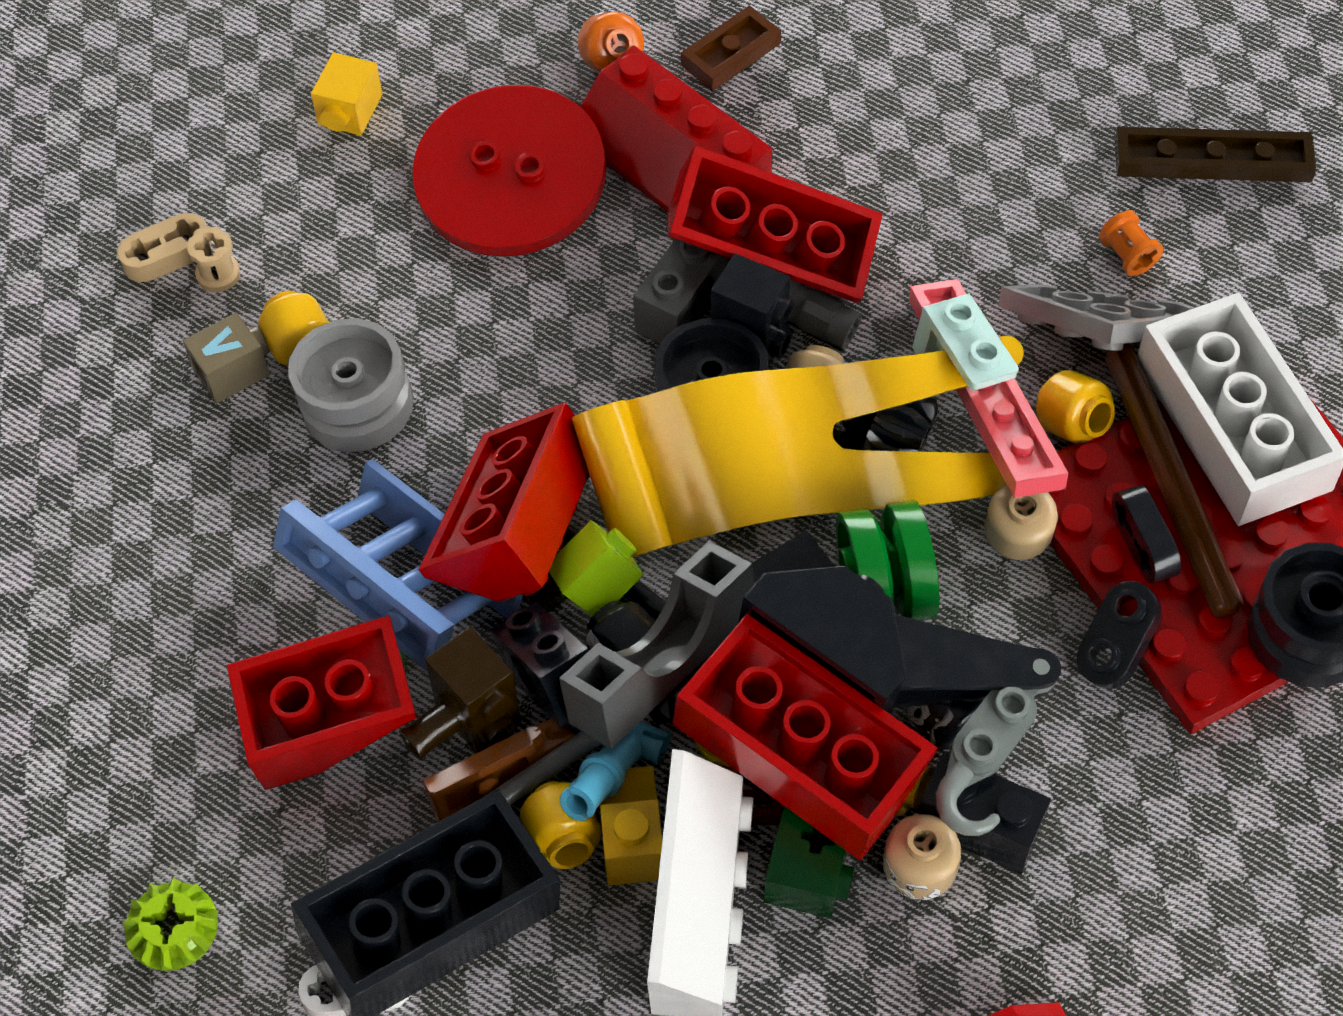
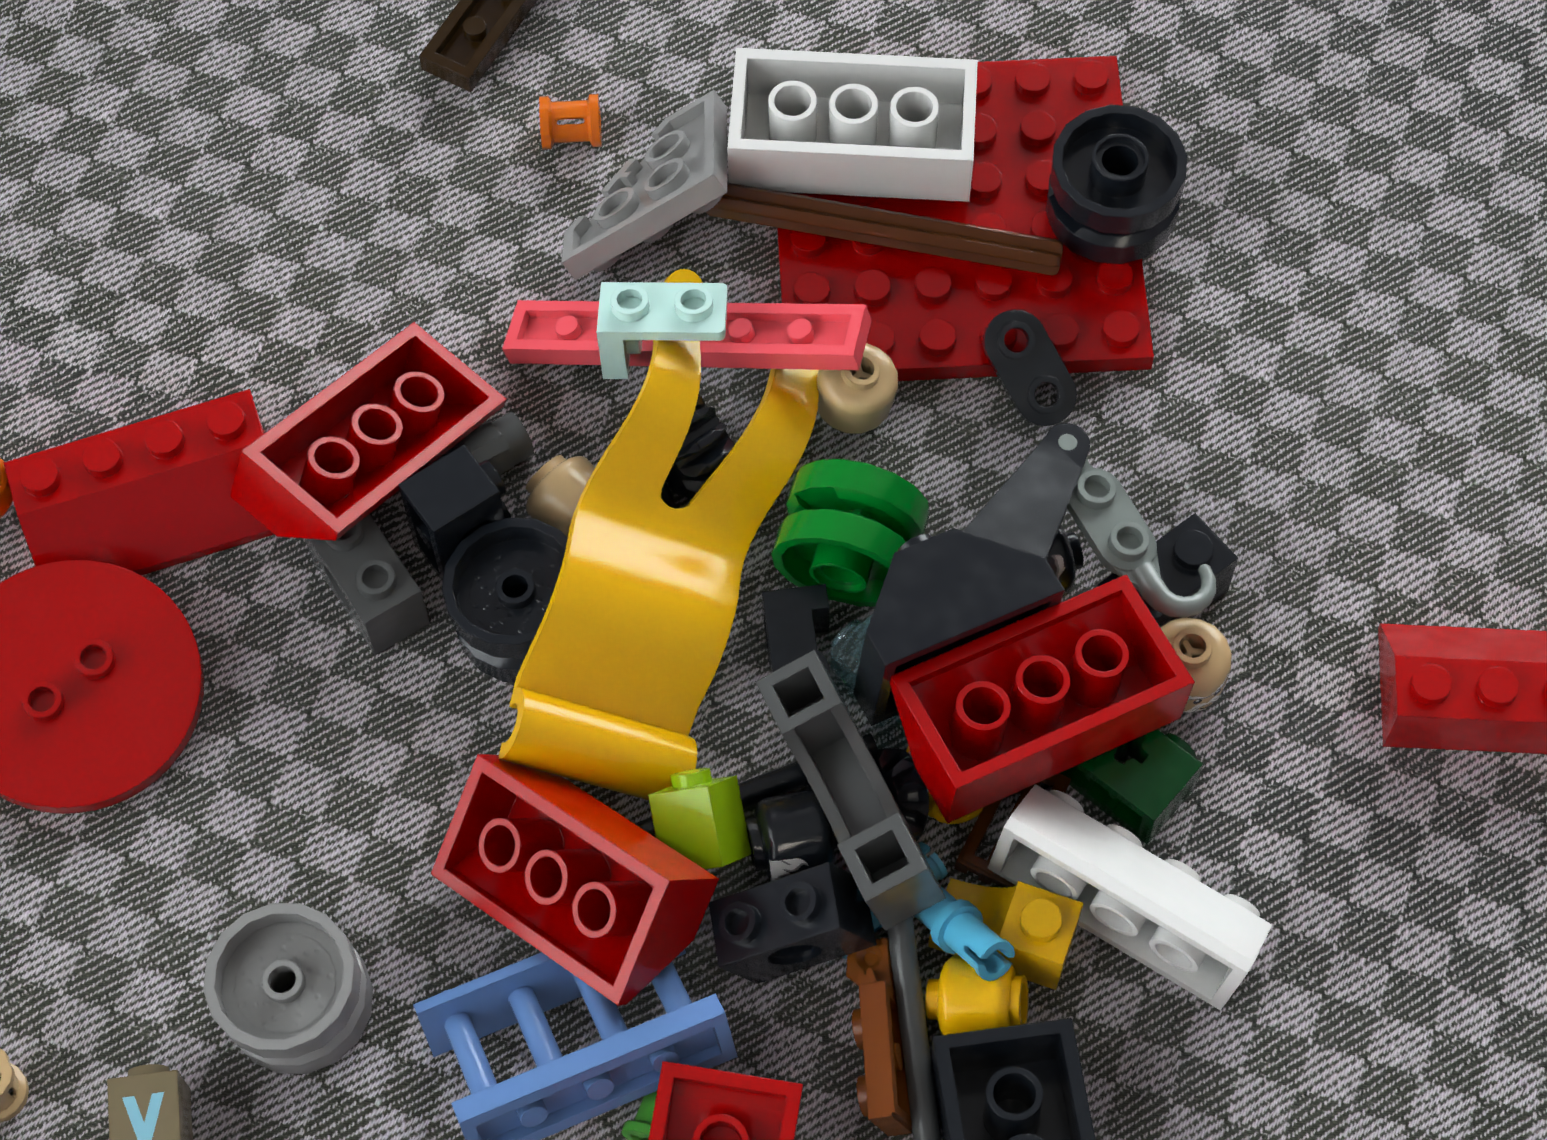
camera: 65 degrees left, 5 degrees up
(287, 320) = (161, 1023): yellow head -> none
(471, 697) = (792, 1027): dark brown brick -> none
(730, 48) = (51, 372): reddish brown plate -> none
(1075, 407) = (750, 266): yellow head -> none
(1146, 534) = (942, 282): black beam -> none

